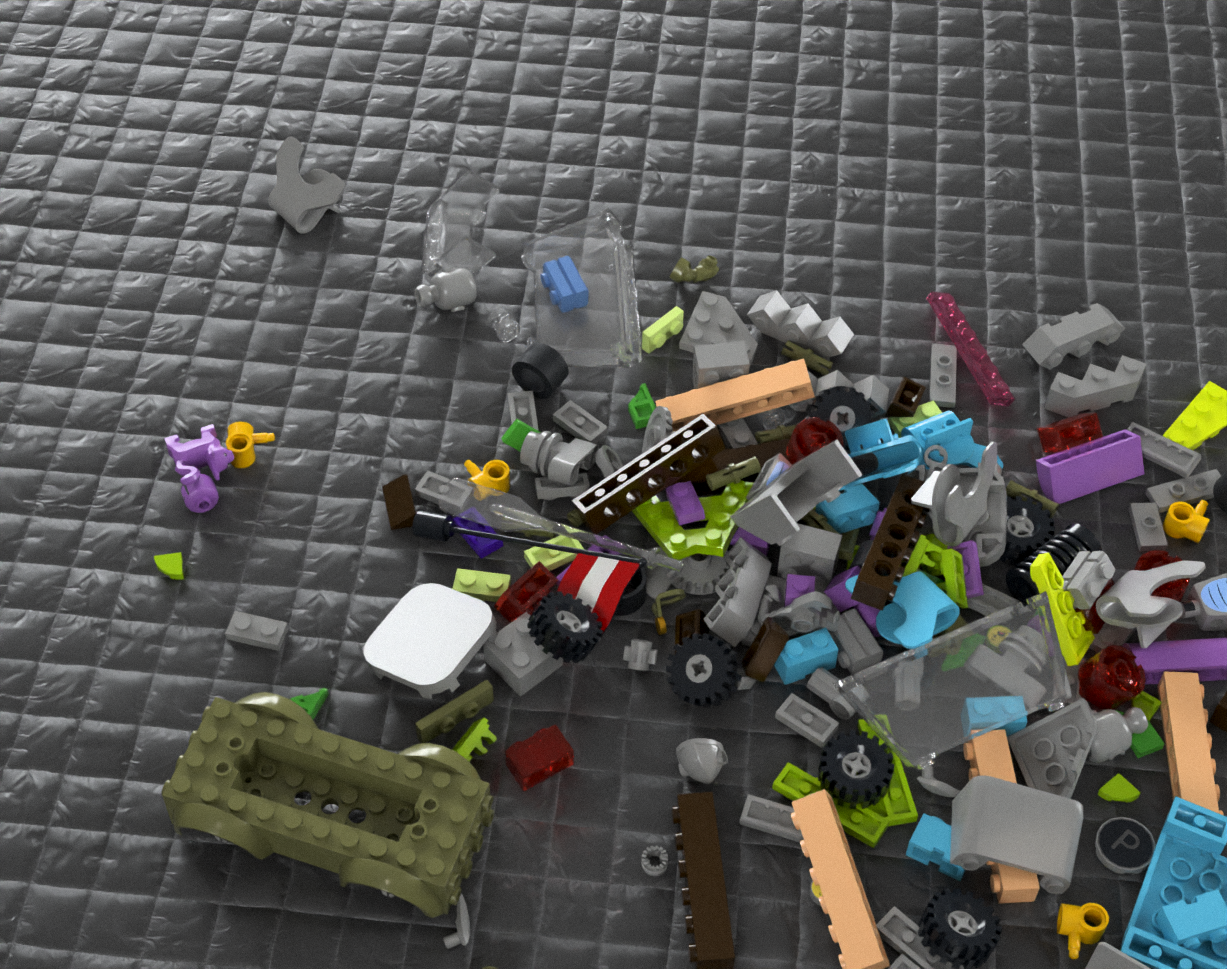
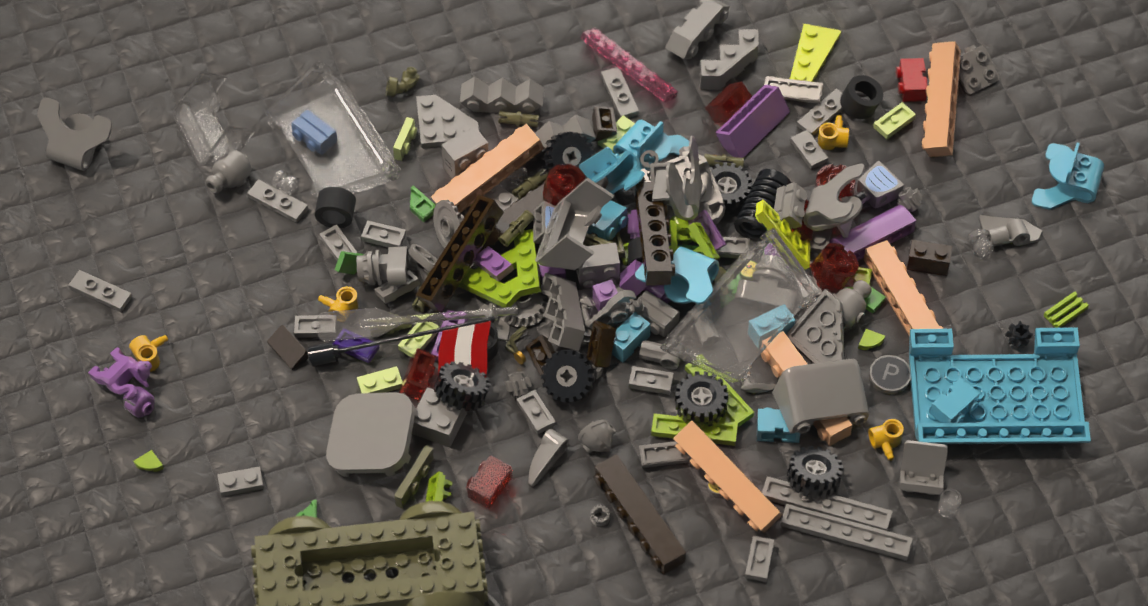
camera: 25 degrees left, 5 degrees up
(237, 360) = (100, 290): none -> light grey plate
(485, 342) = (277, 201): none -> light grey plate
(635, 753) = (549, 451): none -> light grey piece
(644, 698) = (536, 412): none -> light grey plate

